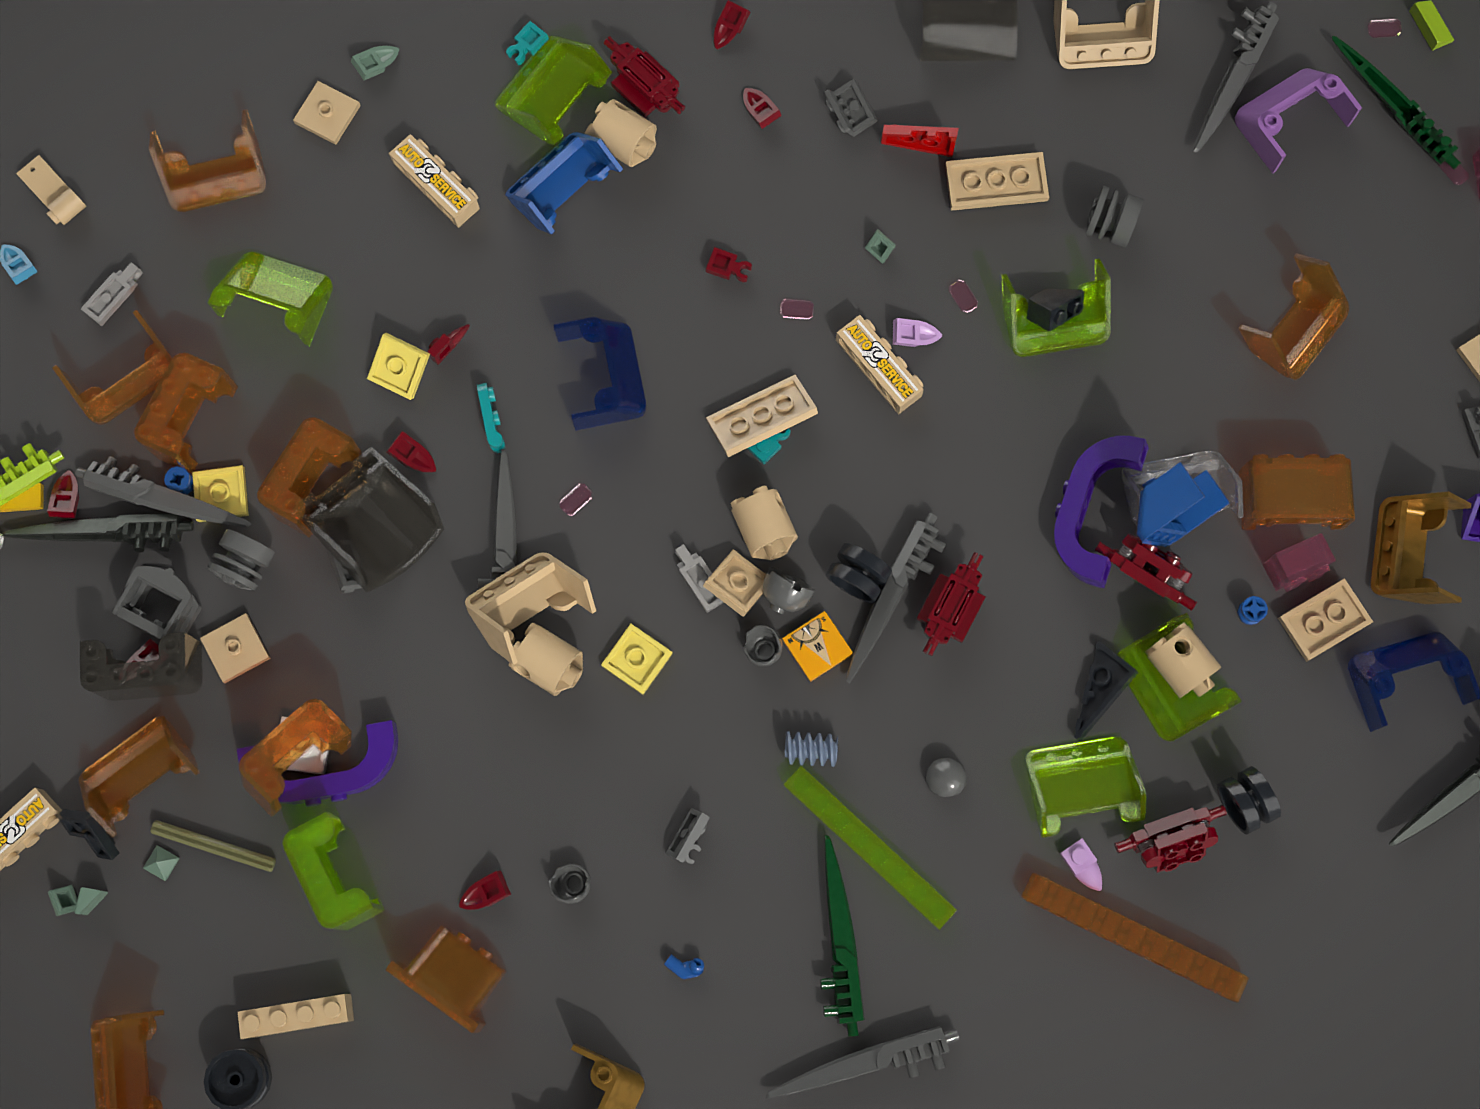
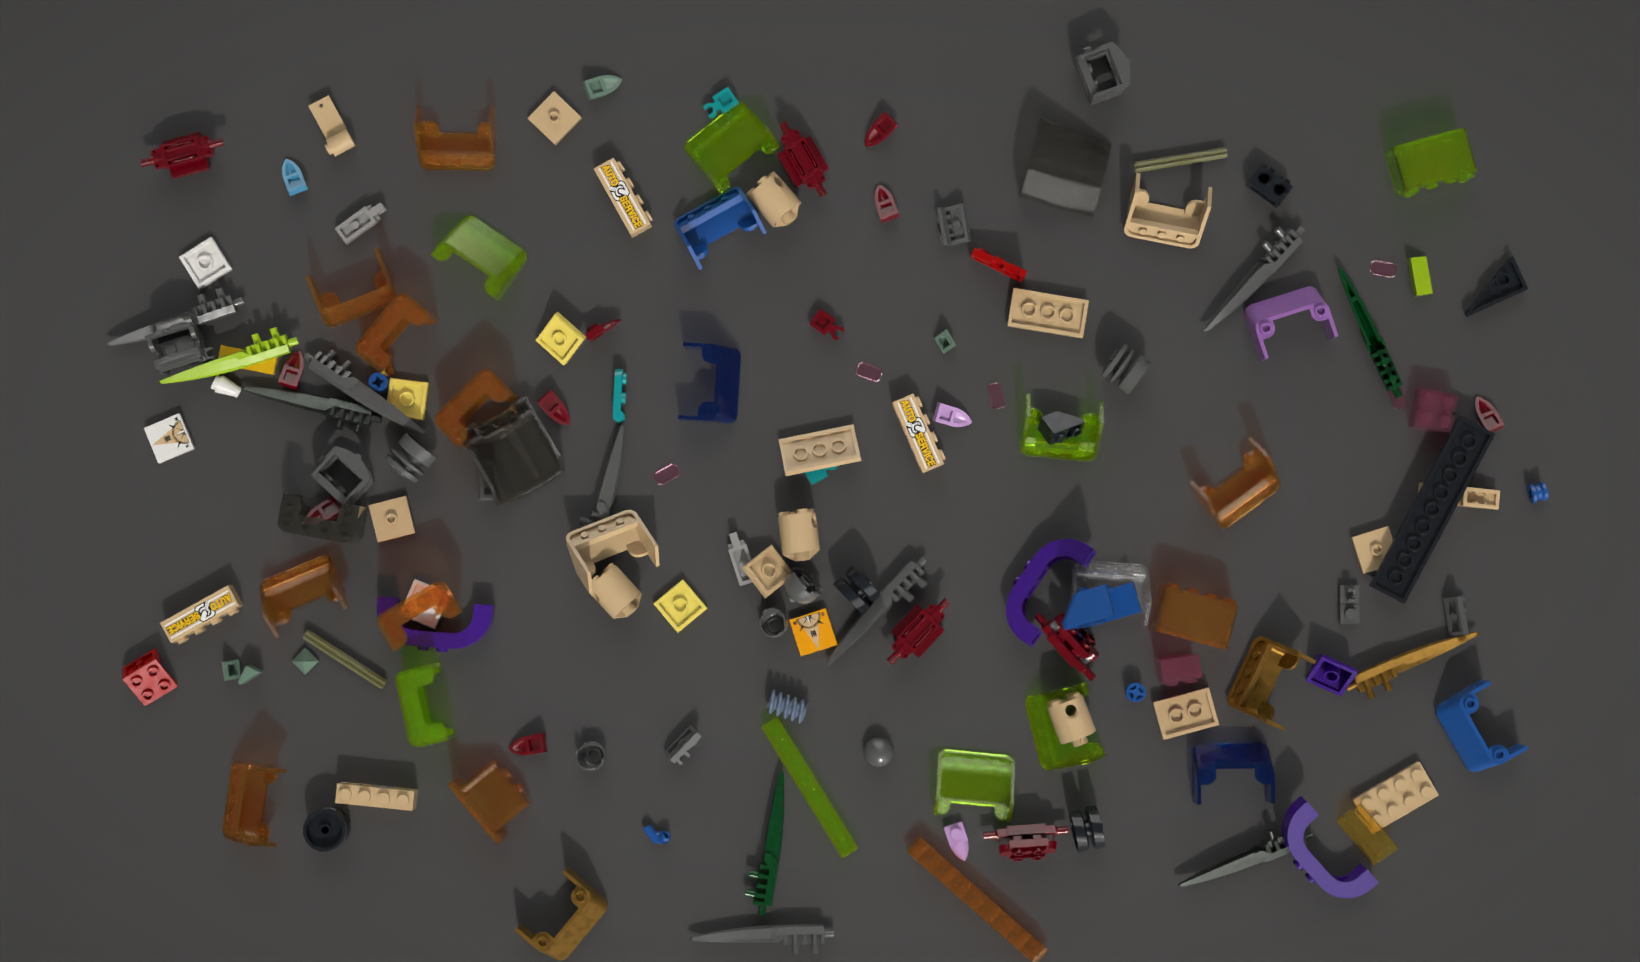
camera: 10 degrees right, 10 degrees up
(85, 826) = (256, 622): black plate -> none
(1107, 681) = (1014, 714): black wing -> none

